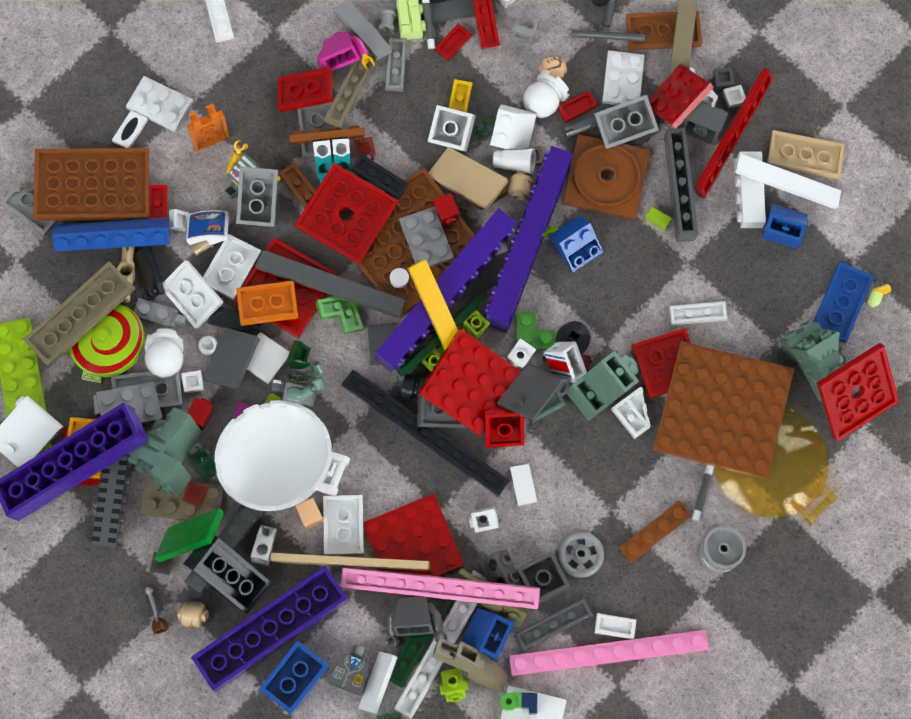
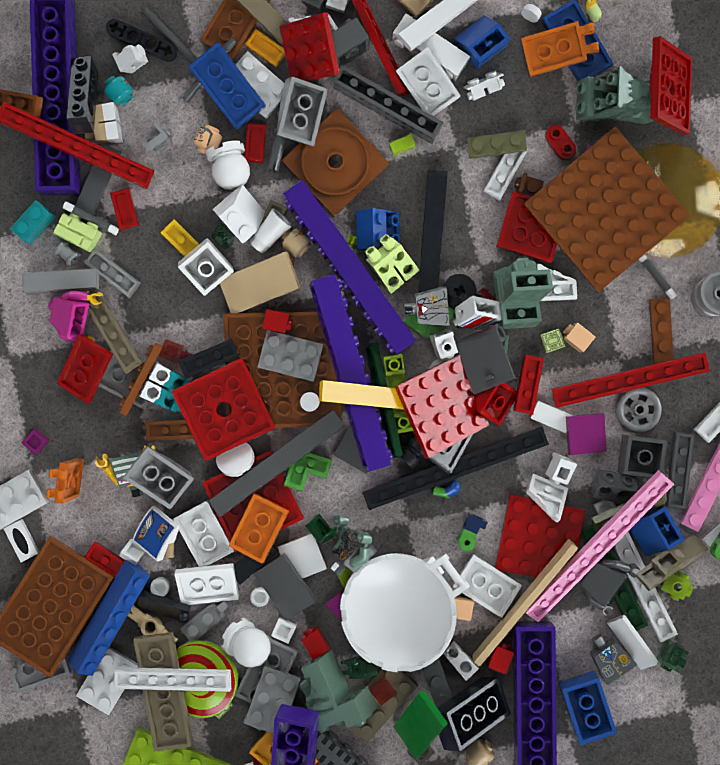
camera: 55 degrees left, 15 degrees up
(55, 269) = (100, 688): none -> white plate
(96, 311) = (172, 679): none -> white tile
(164, 260) = (160, 586): none -> white tile
(218, 91) = (35, 441): none -> magenta tile
(289, 575) = (500, 657): none -> red brick
(311, 251) = (236, 460): none -> white tile
(379, 479) = (469, 531): none -> leg
(401, 441) = (447, 492): none -> arm
(455, 523) = (547, 495): none -> white wing
(529, 521) = (586, 433): none -> magenta tile
(536, 446) = (528, 384): none -> red plate
(543, 320) = (430, 307): none -> light grey torso
(556, 260) = (388, 257): none -> yellowish green hips
(587, 443) = (552, 340): none -> yellowish green tile
(600, 525) = (630, 379): none -> red plate
(602, 289) = (432, 230): none -> black beam
(604, 460) = (578, 337): none -> light nougat brick
(605, 56) = (227, 85): none -> blue tile
(657, 66) = (265, 47): none -> light orange tile
(698, 335) = (528, 185): none -> reddish brown bracket
(713, 291) = (497, 144): none -> olive plate
(721, 204) = (428, 82): none -> white plate
(753, 341) = (558, 143): none -> red plate
(759, 254) = (477, 86): none -> white hinge
(825, 288) = (558, 48): none -> orange tile
(836, 249) = (531, 13): none -> white tile

